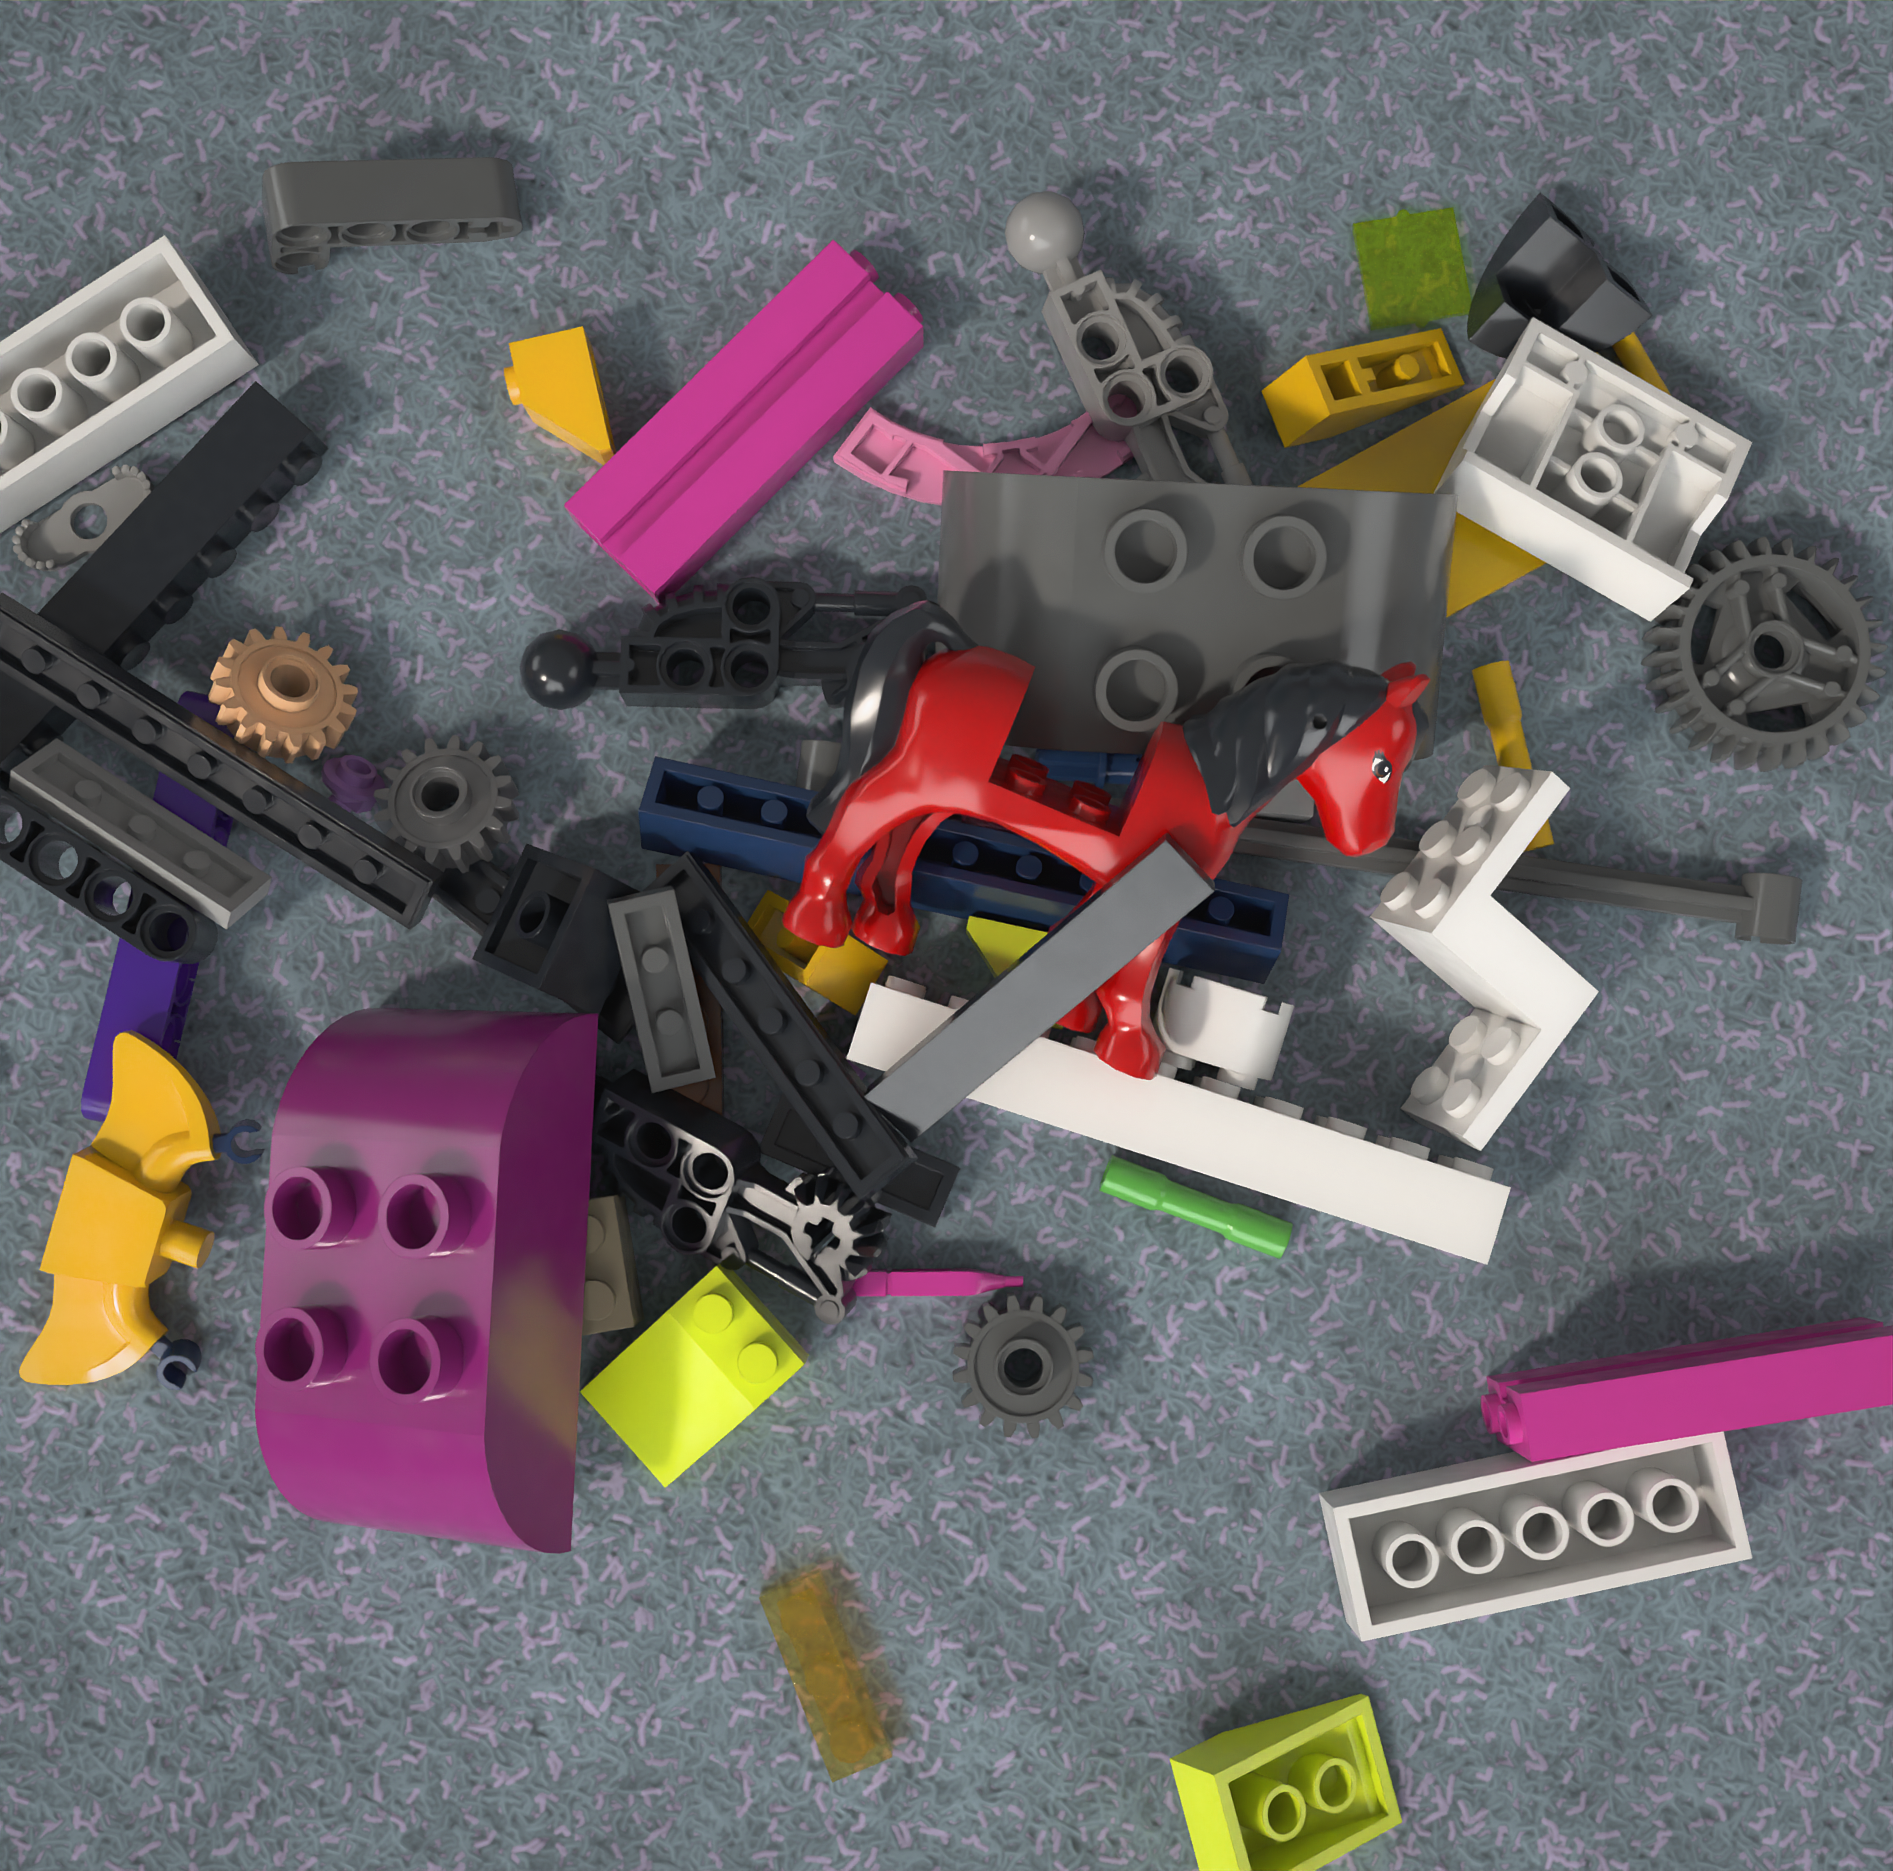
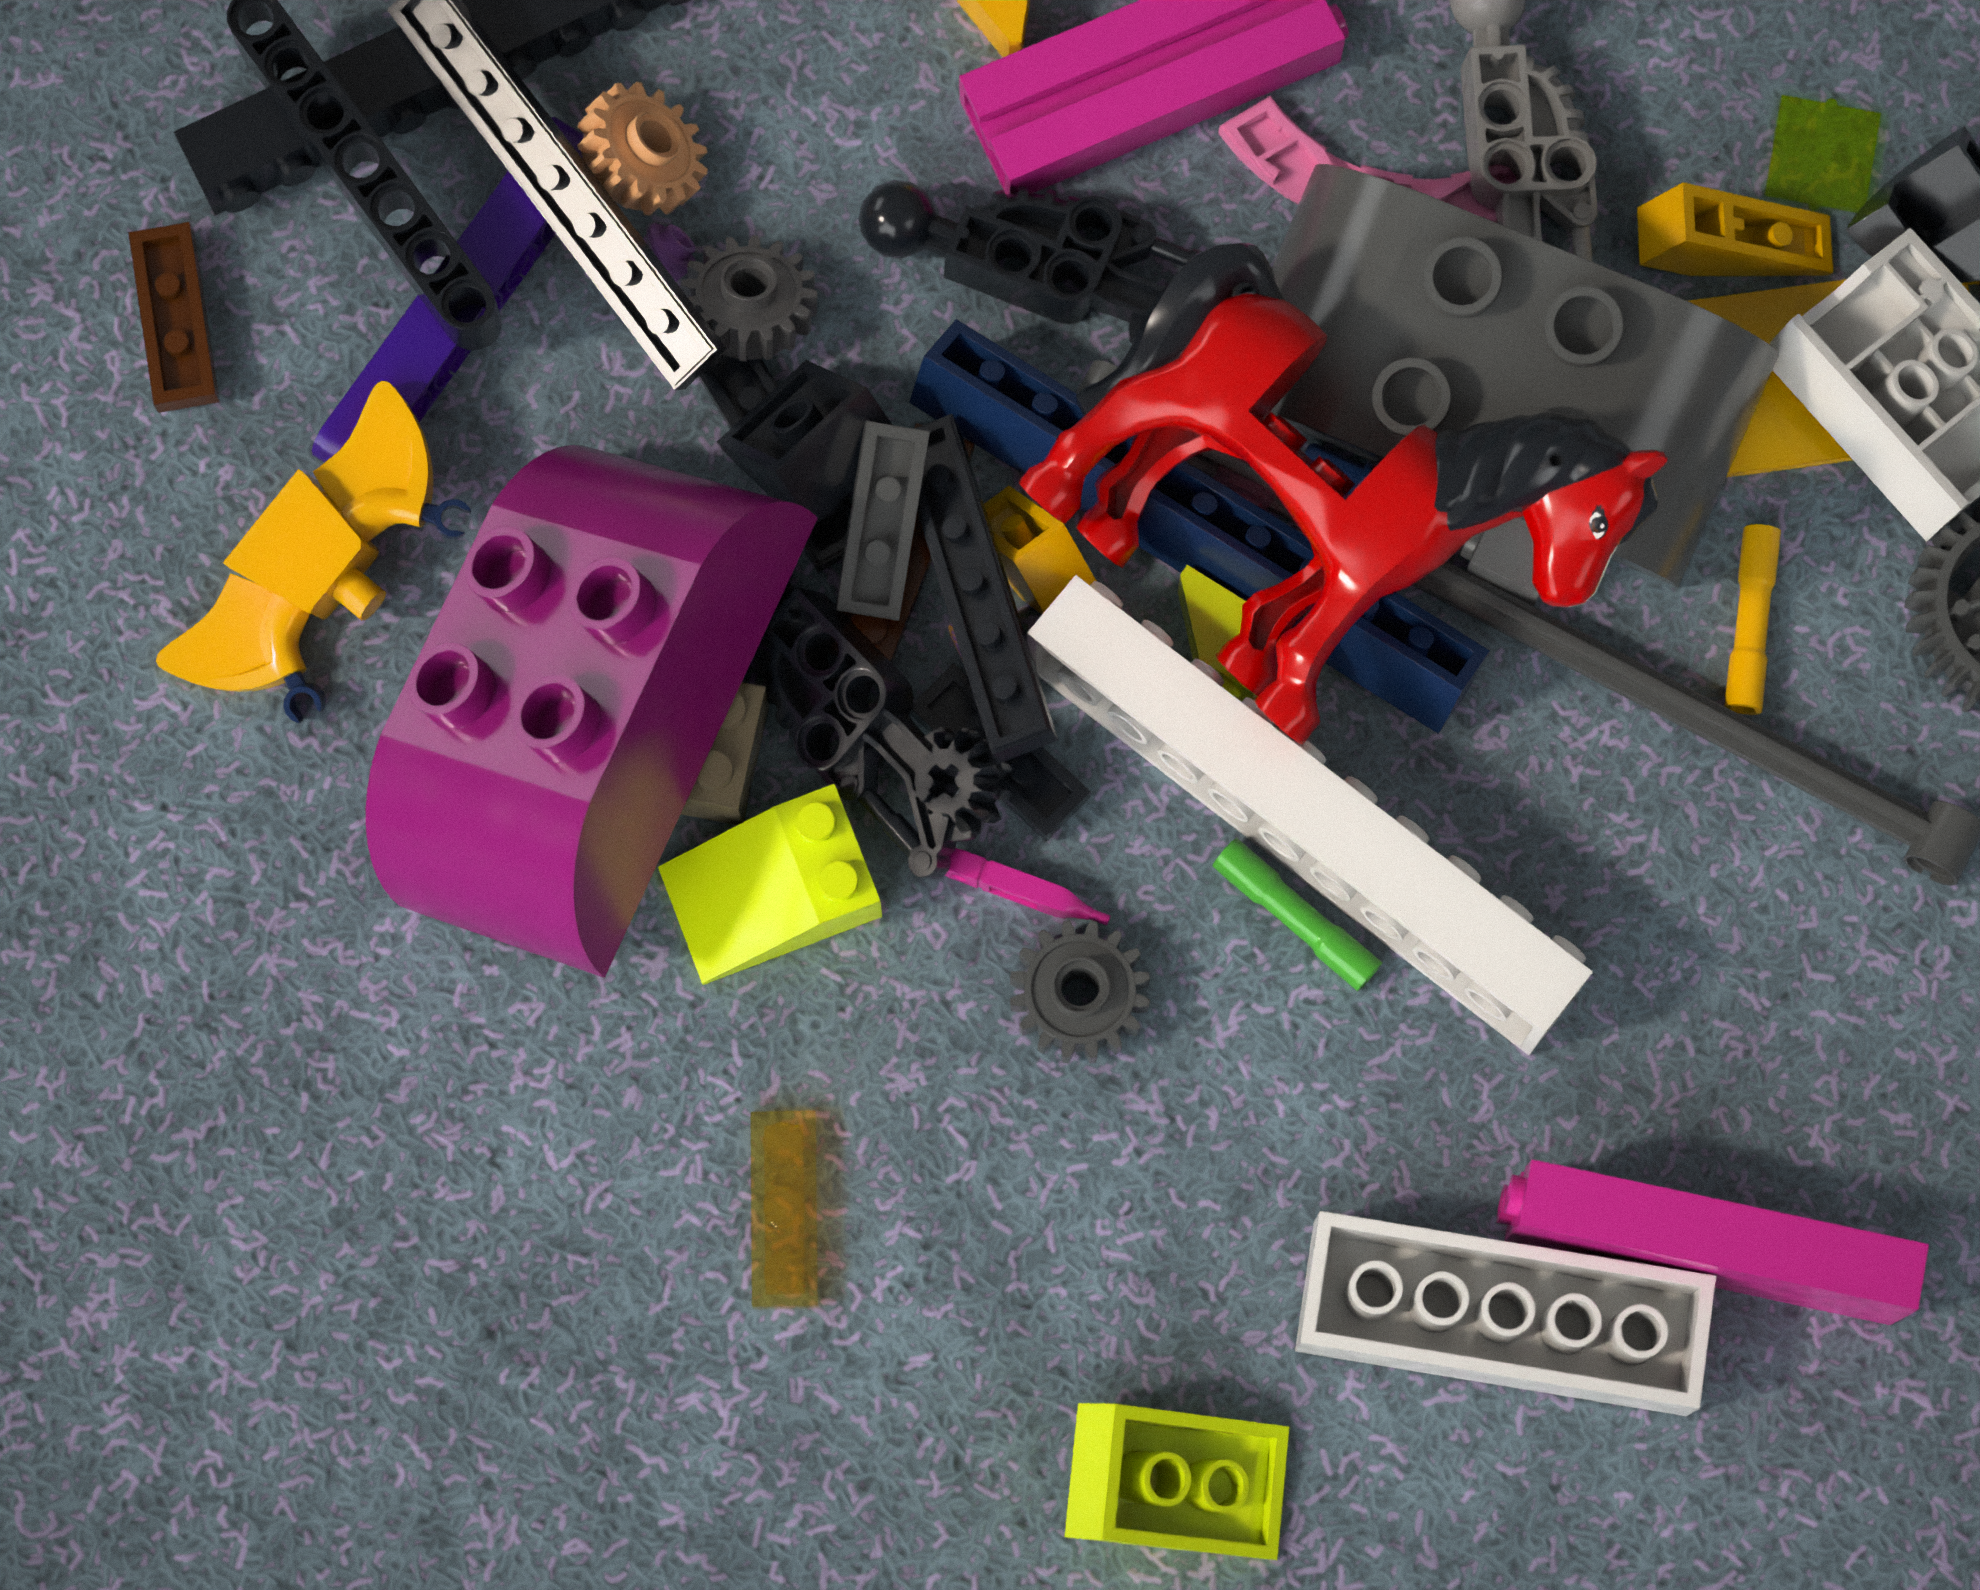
camera: 25 degrees right, 10 degrees down
(140, 833) = (474, 217): light grey plate -> none
(1041, 987) = (1223, 617): tile -> none
(1220, 1028) = (1383, 746): white brick -> none
(1518, 985) = (1648, 766): white bracket -> none

